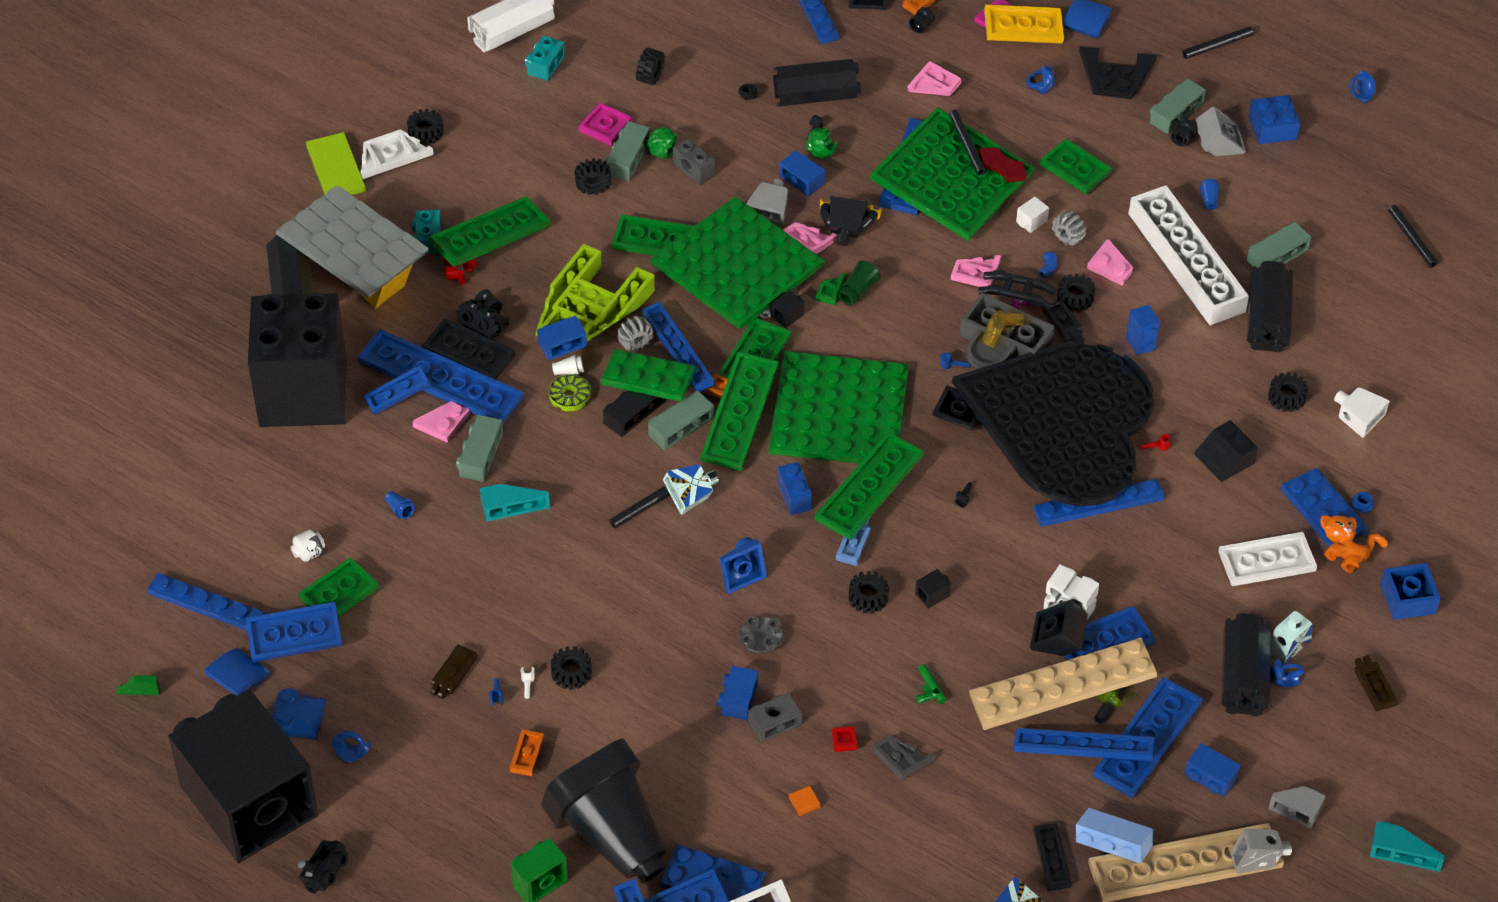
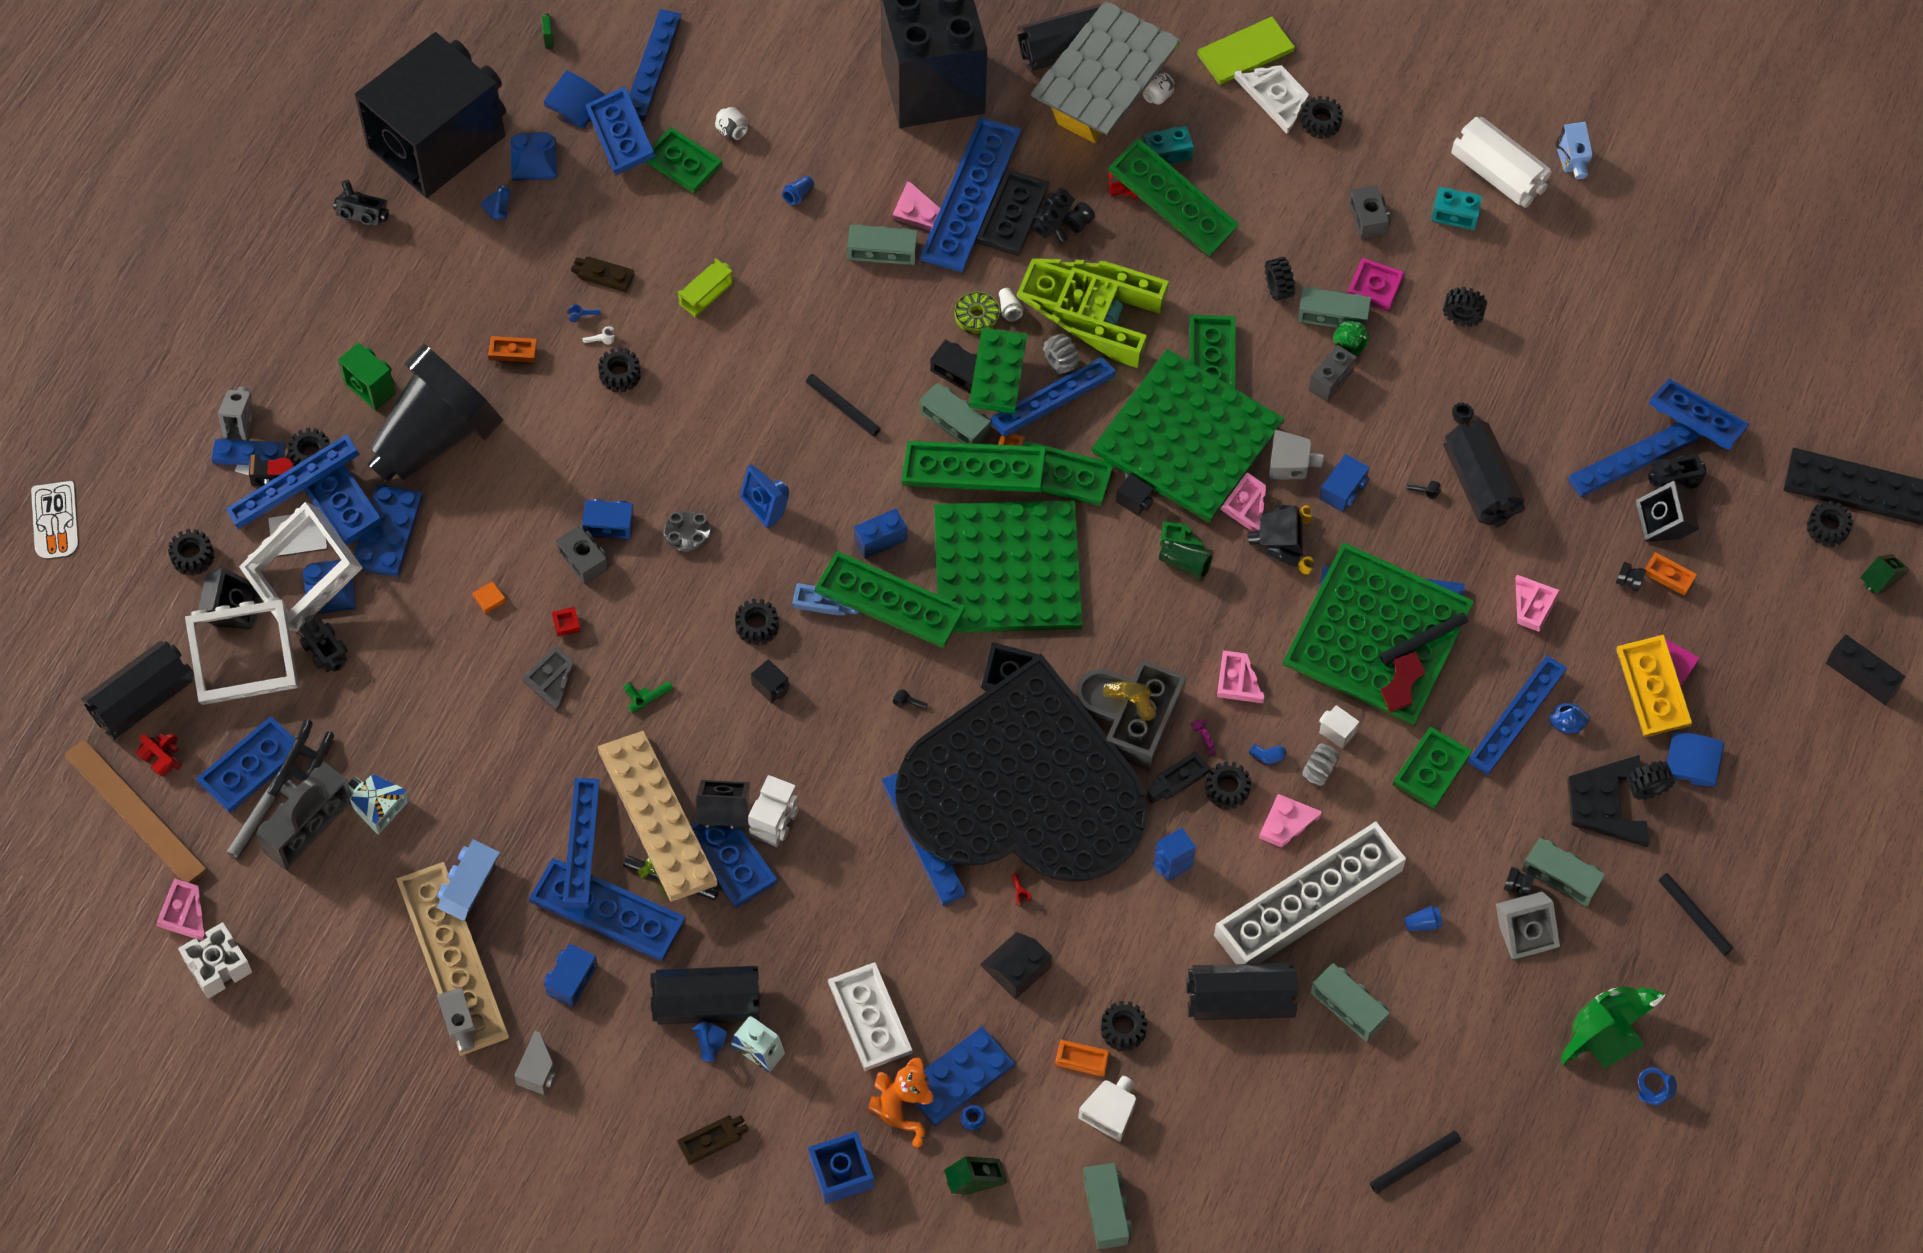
camera: 80 degrees right, 10 degrees up
(397, 390) = (940, 158): blue plate -> none
(494, 587) = (706, 287): none -> lime window
(507, 501) = (816, 276): teal slope -> none
(534, 112) = (1369, 223): none -> dark grey brick
(562, 337) = (1021, 278): blue brick -> none
(689, 486) = (862, 435): torso -> none
(819, 143) = (1392, 494): green piece -> none
(946, 362) = (1096, 665): blue hand -> none
(1006, 290) = (1218, 727): black piece -> none
(1035, 108) = (1517, 715): none -> blue plate
(1052, 857) = (448, 831): black tile -> none
(1108, 39) = (1650, 780): none -> black tyre
(1274, 119) = (1567, 983): blue brick -> none
(1312, 425) = (1082, 1058): none -> orange tile
(1314, 106) = (1606, 1023): none -> green animal
(1400, 846) = (496, 1171): teal slope -> none
(1417, 507) = (974, 1175): none -> dark green slope
(1446, 425) = (1107, 1205): none -> sand green brick

